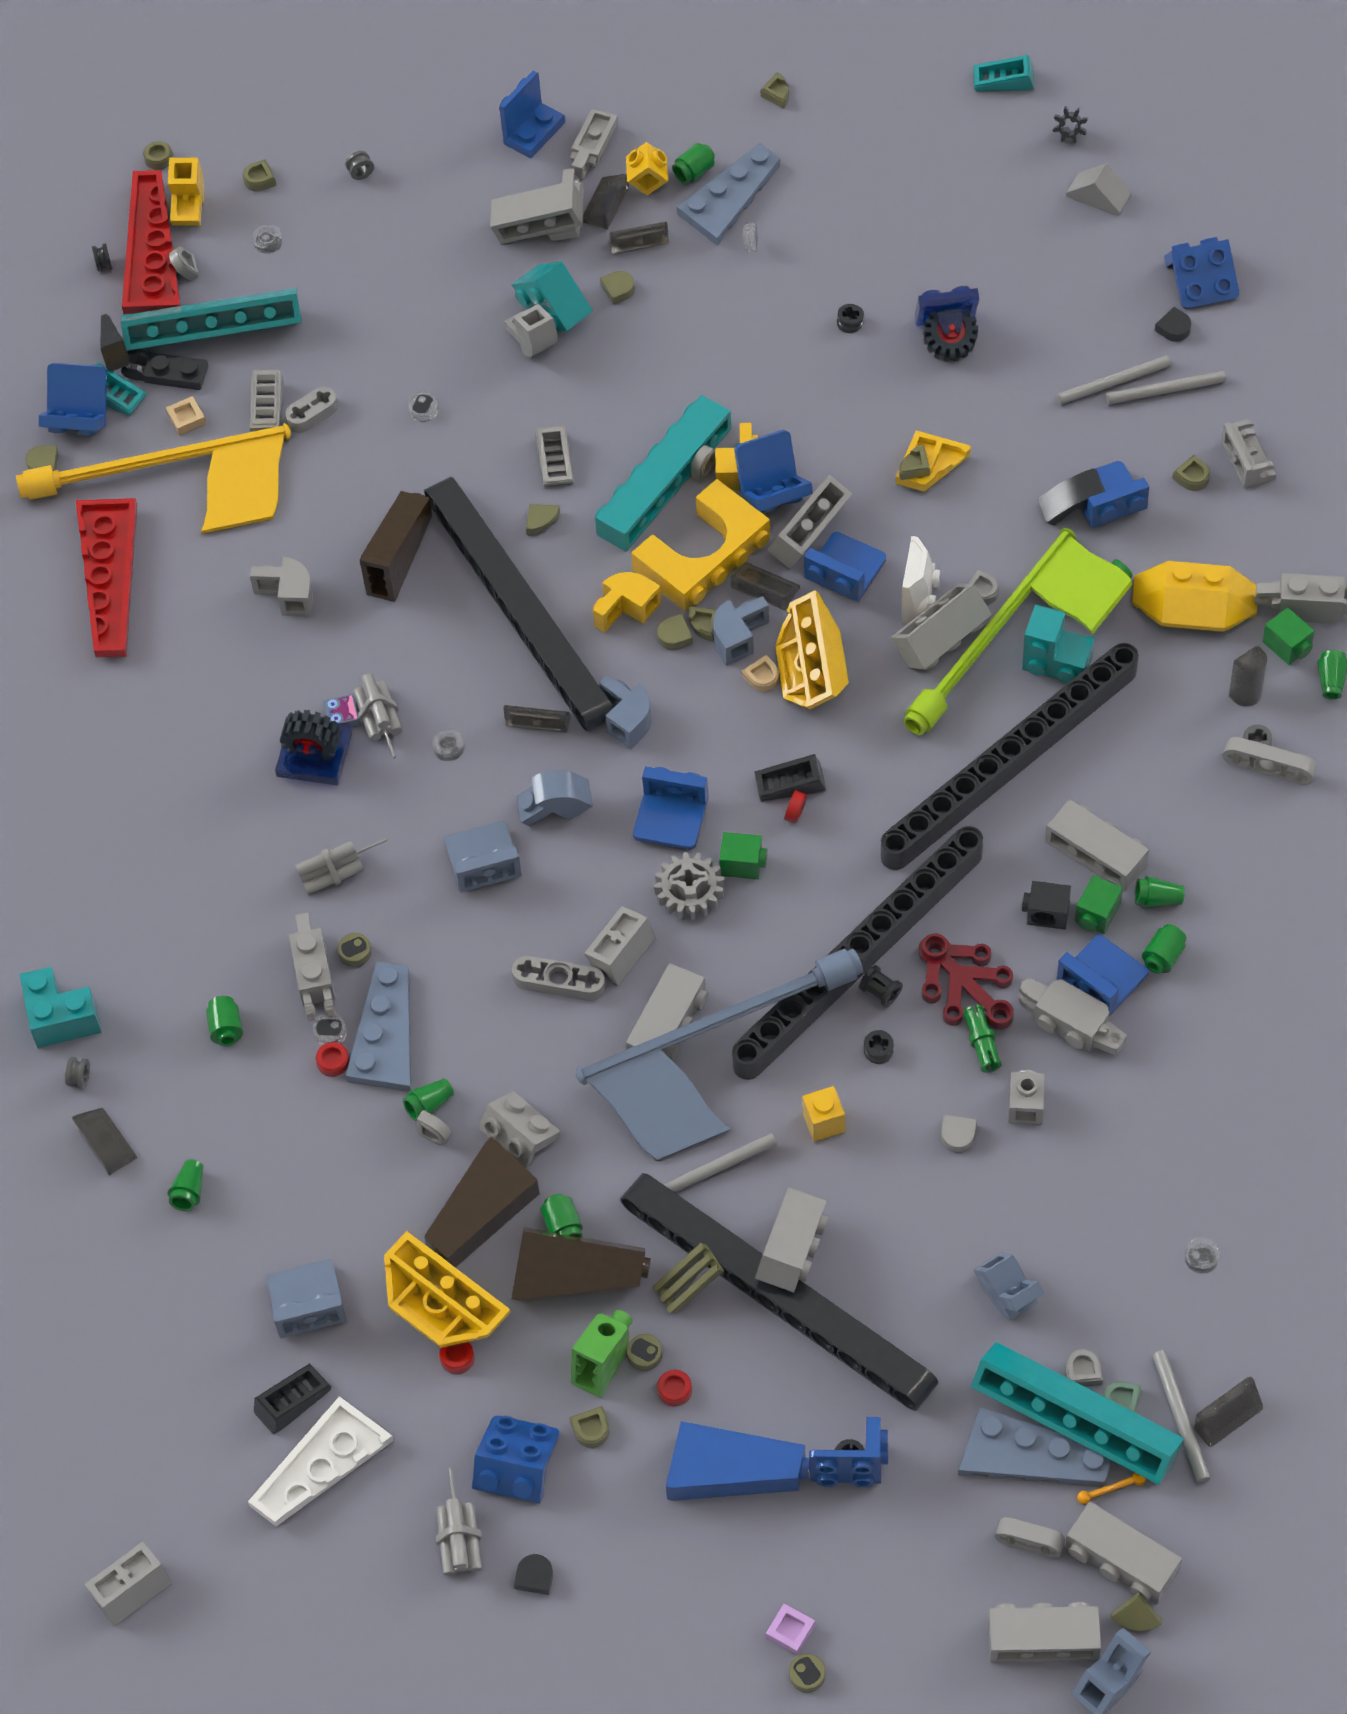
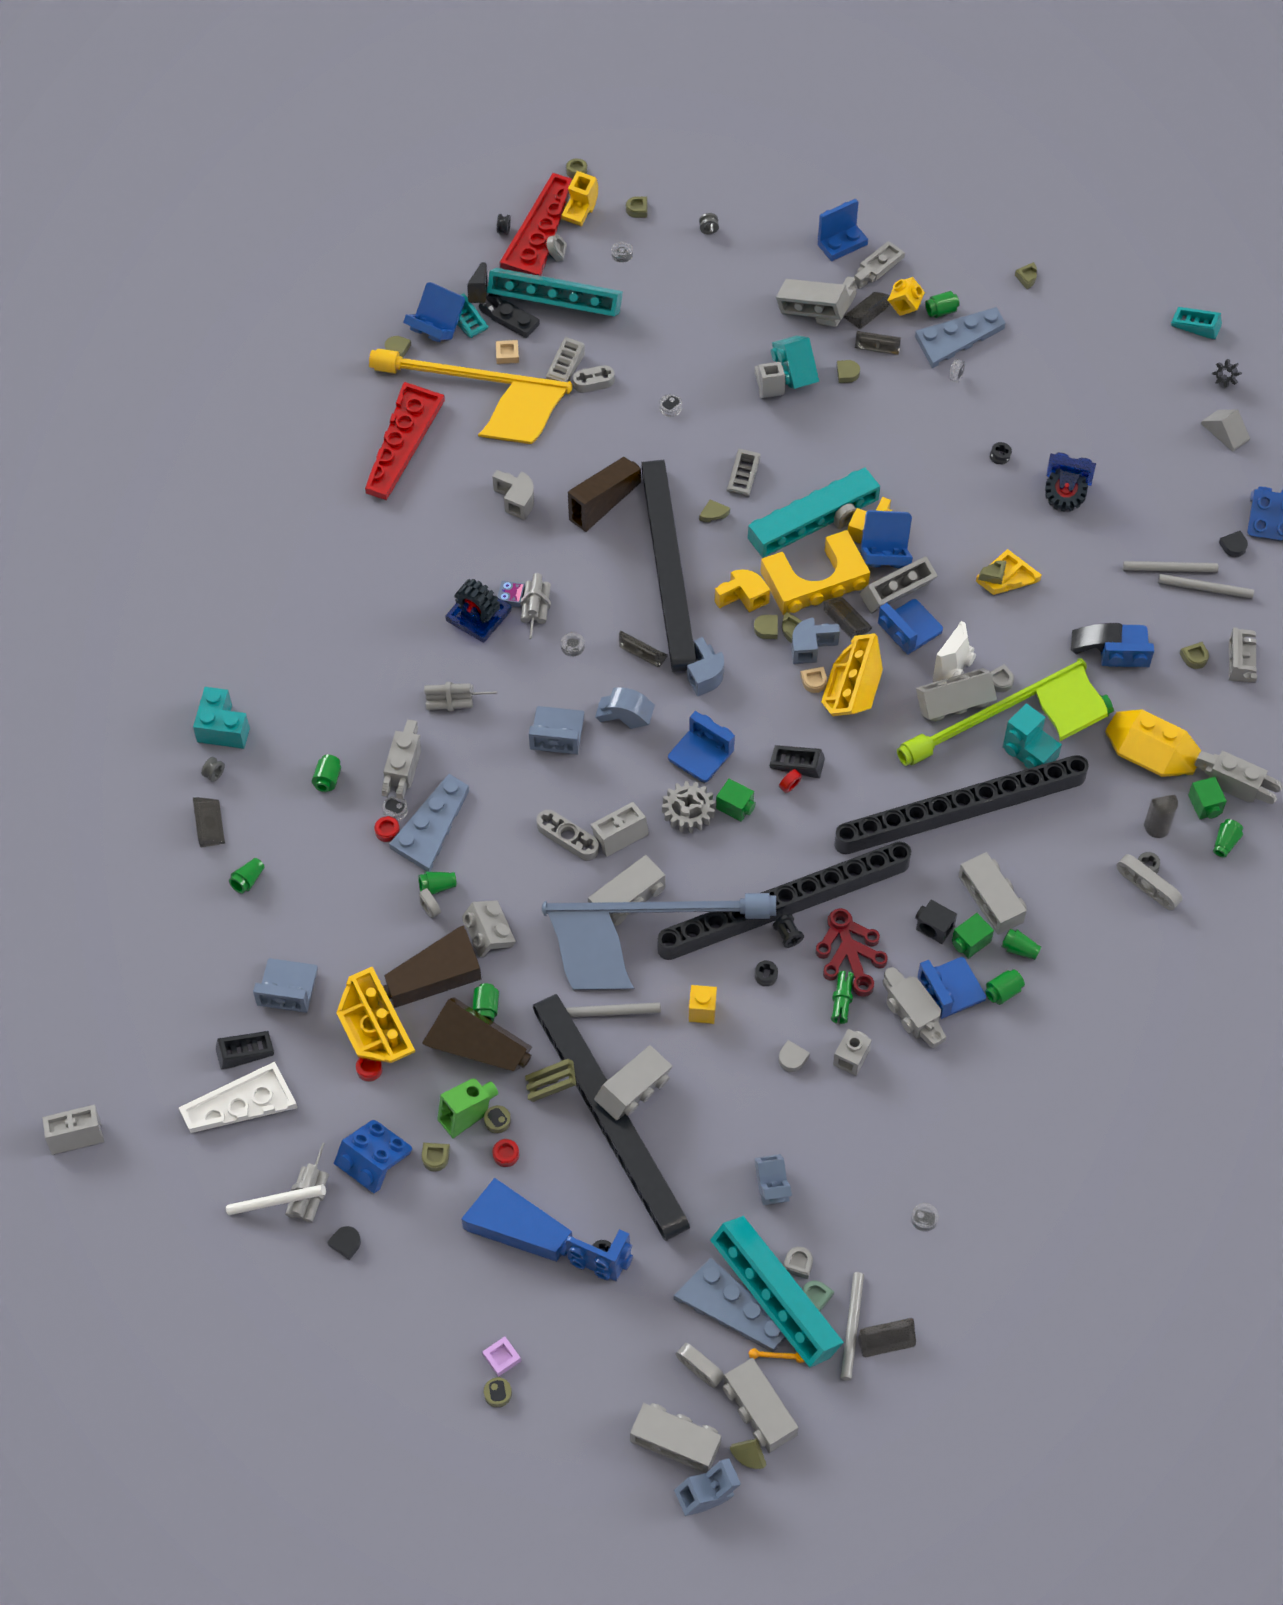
camera: 20 degrees right, 0 degrees up
(354, 949) = (439, 759): olive tile -> none
(428, 1560) = (276, 1199): none -> white bar

